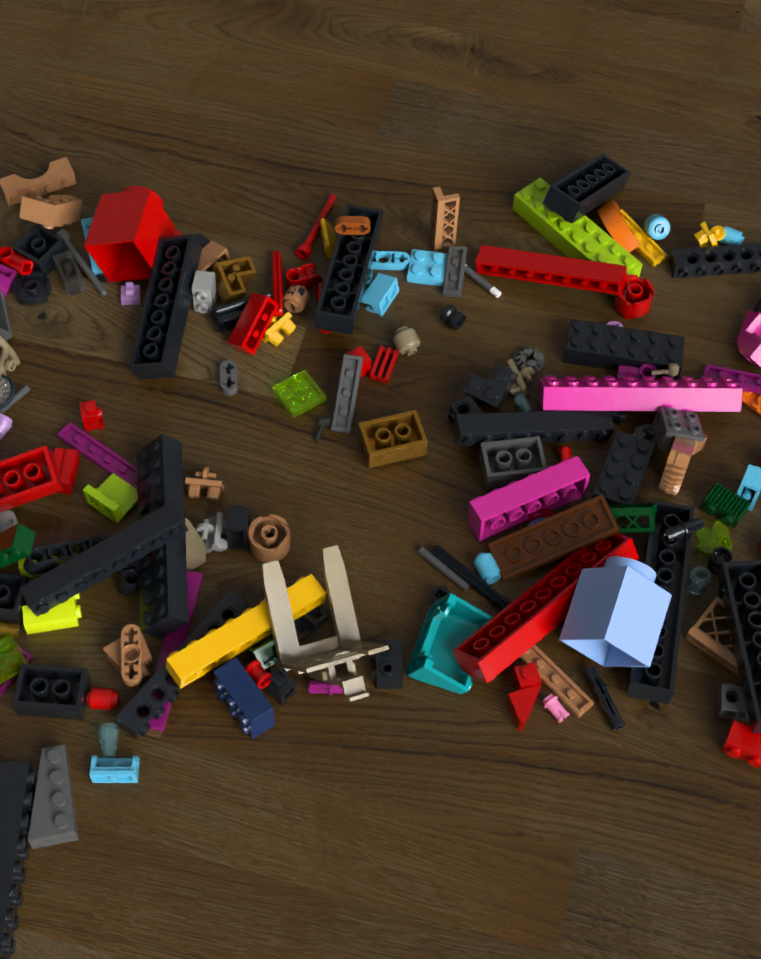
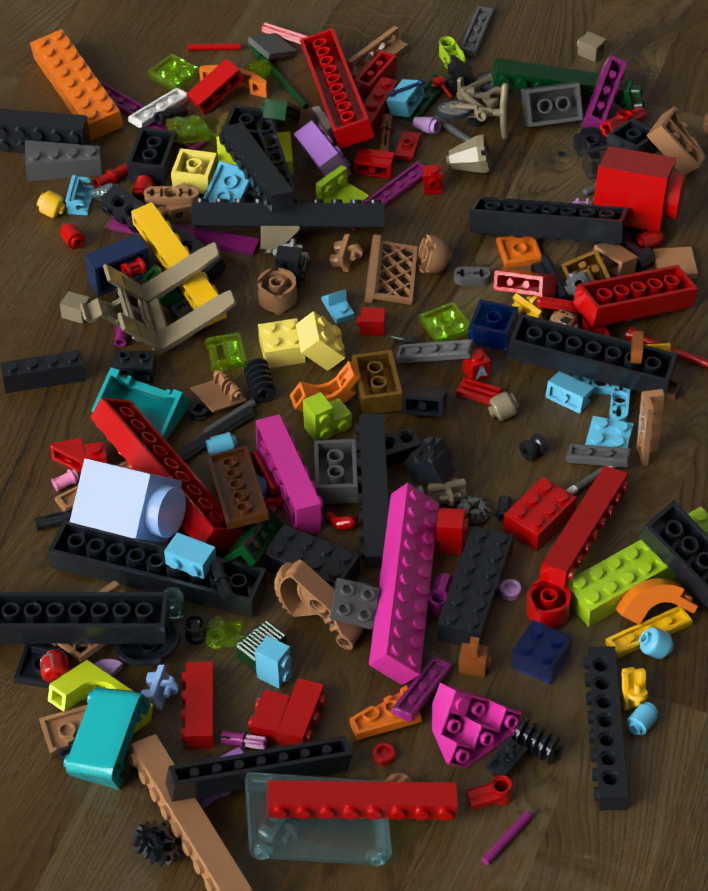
camera: 100 degrees right, 10 degrees down
(24, 443) = (407, 146): none -> red plate
(58, 380) = (471, 156): none -> dark tan cone
(59, 511) = (321, 148): none -> medium lavender brick
(79, 737) = (111, 176): none -> red pin
(80, 642) = (194, 168): none -> light yellow brick
(109, 606) = (226, 183): none -> medium azure tile
(132, 796) = (51, 204): none -> yellow head
(185, 763) = (72, 236): none -> red brick
(194, 343) = (518, 251): none -> orange tile
(204, 221) = (677, 256): none -> medium nougat tile
(204, 291) = (570, 246): light grey brick -> none
(210, 406) = (433, 254): none -> medium nougat cylinder
(227, 457) = (377, 269): none -> medium nougat fence
(257, 280) = (573, 278): none -> dark grey brick
(268, 239) = (635, 295): none -> red brick
(276, 489) = (338, 307): none -> medium azure slope
(303, 453) = (371, 321): none -> red brick
(304, 738) = (71, 308): none -> dark tan brick
(305, 350) = (493, 324): none -> clear blue brick
(344, 527) = (280, 343): none -> light yellow brick
(347, 486) = (320, 341): none -> light yellow brick
(363, 572) = (232, 350): none -> clear neon green plate
(398, 541) = (260, 380): none -> black piece
(407, 477) = (340, 387): none -> orange arch
(409, 756) = (42, 371): none -> black brick
(412, 396) = (424, 401): none -> black brick
(418, 579) = (219, 393): none -> medium nougat hinge
(444, 477) = (325, 418): none -> lime brick
(516, 526) = (264, 472): none -> red bar
(527, 336) = (503, 507): none -> black pin
(532, 308) = (539, 513): none -> red brick
(573, 363) = (451, 531): none -> red brick
(663, 555) = (190, 555): none -> medium azure brick
(672, 370) = (433, 610): dark tan hand -> none
(682, 301) = (541, 652): none -> clear blue brick
(701, 347) = (474, 658): none -> dark orange brick

